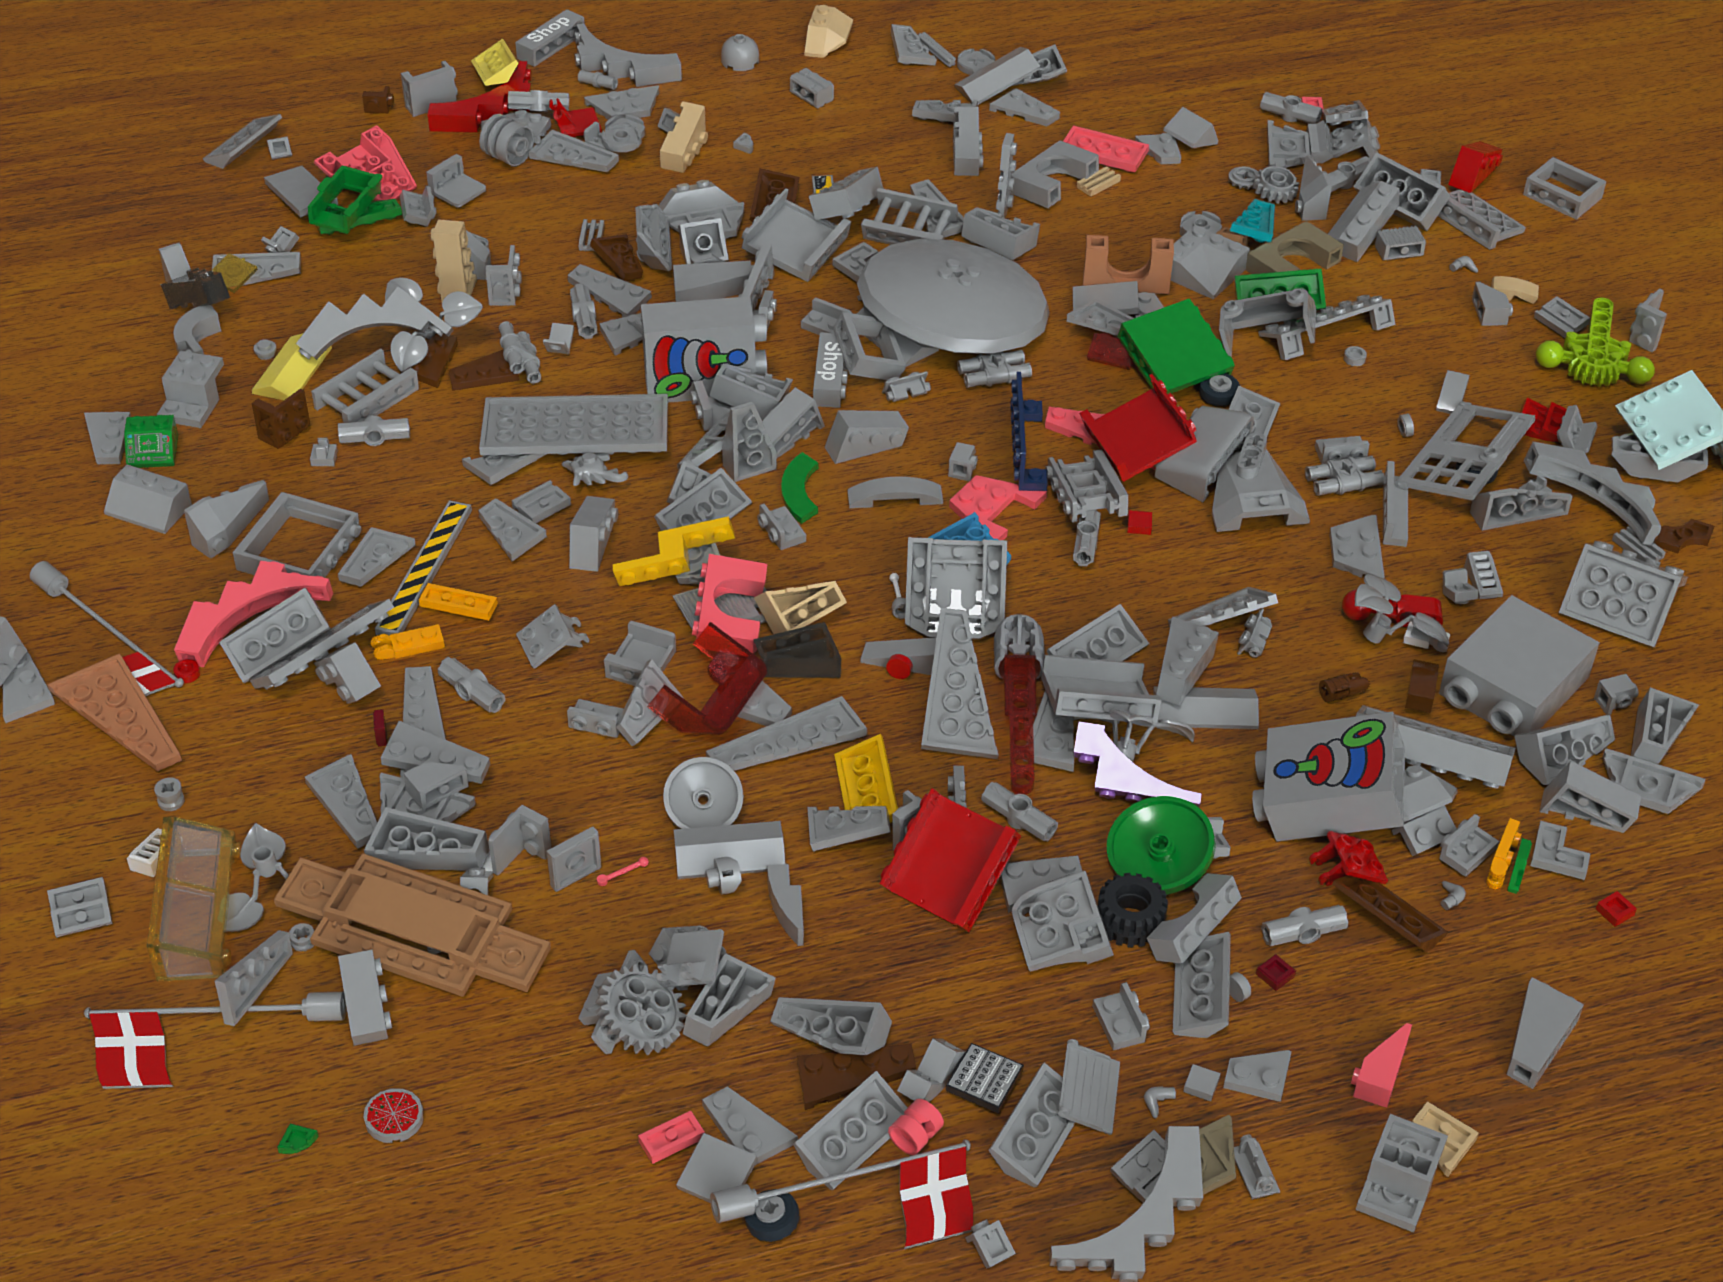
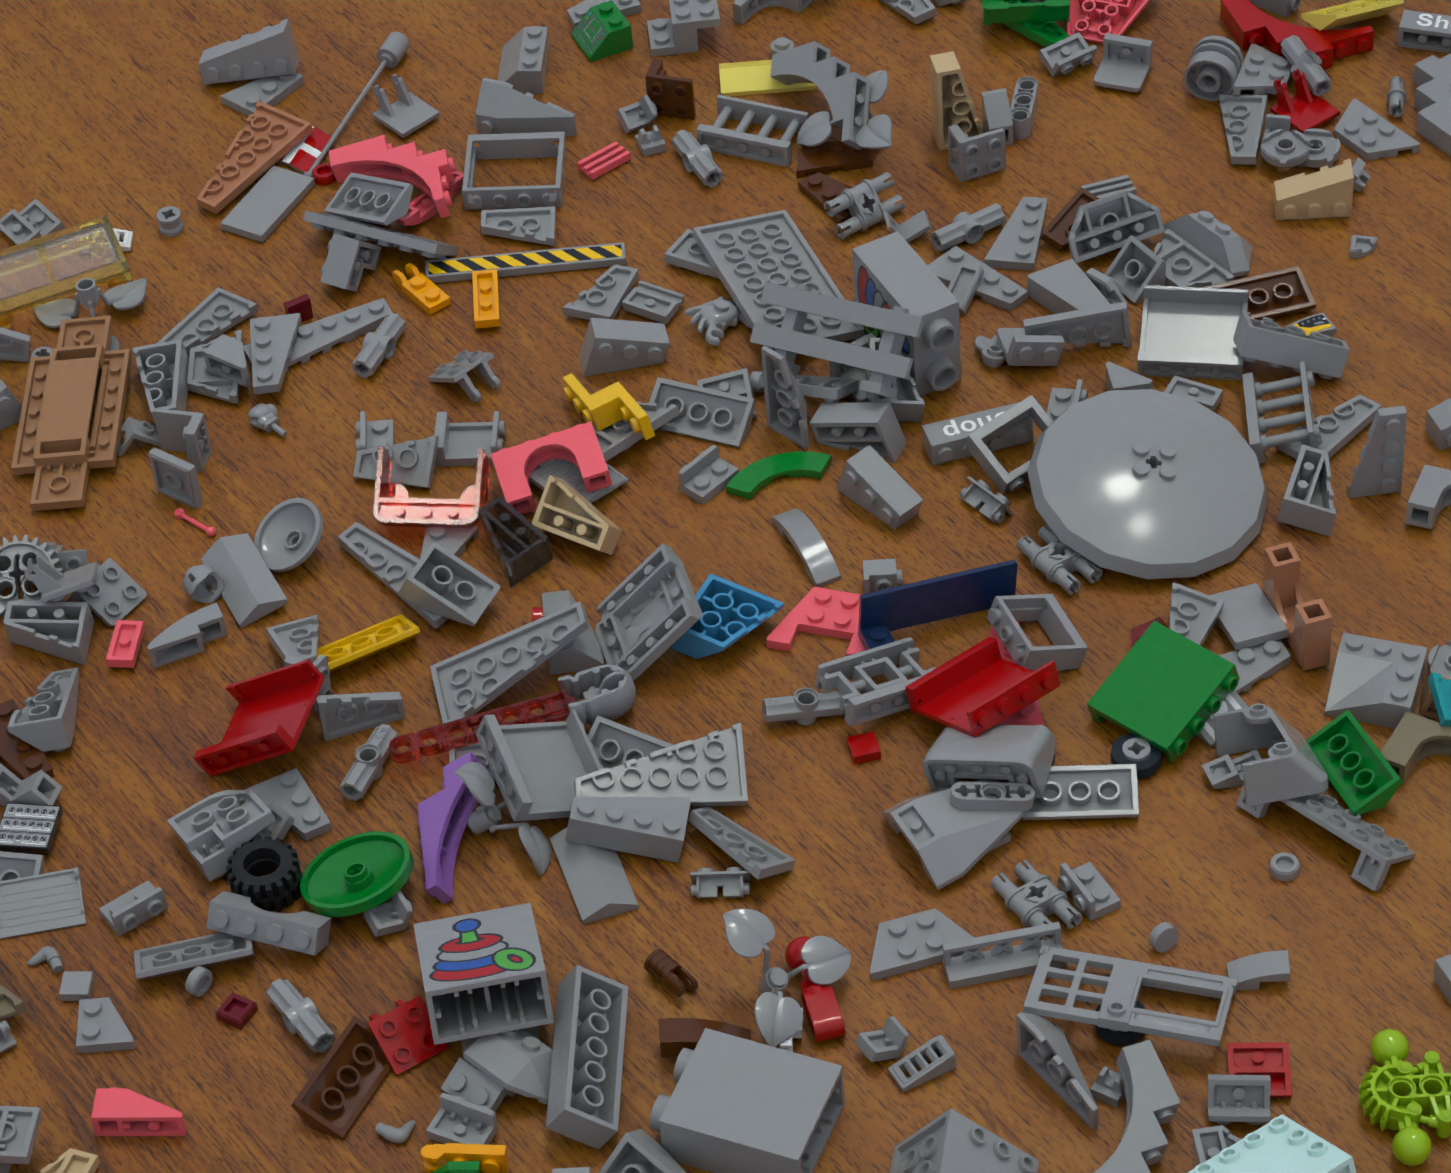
camera: 75 degrees right, 0 degrees up
(145, 594) = (405, 114): none -> light grey plate
(198, 720) = (267, 203): none -> light grey tile
(287, 447) = (637, 114): none -> light grey bracket
(322, 476) = (603, 160): none -> coral tile
(516, 787) = (266, 418): none -> light grey piece
(767, 367) = (790, 340): none -> light grey fence
(768, 953) = (125, 643): none -> coral plate
(824, 285) = (1123, 379): none -> light grey slope
(839, 703) = (448, 586): none -> light grey slope
(1077, 393) = (1068, 645): none -> light grey window
(1144, 620) = (703, 769): none -> light grey wing
(1253, 349) = (1227, 772): none -> light grey slope

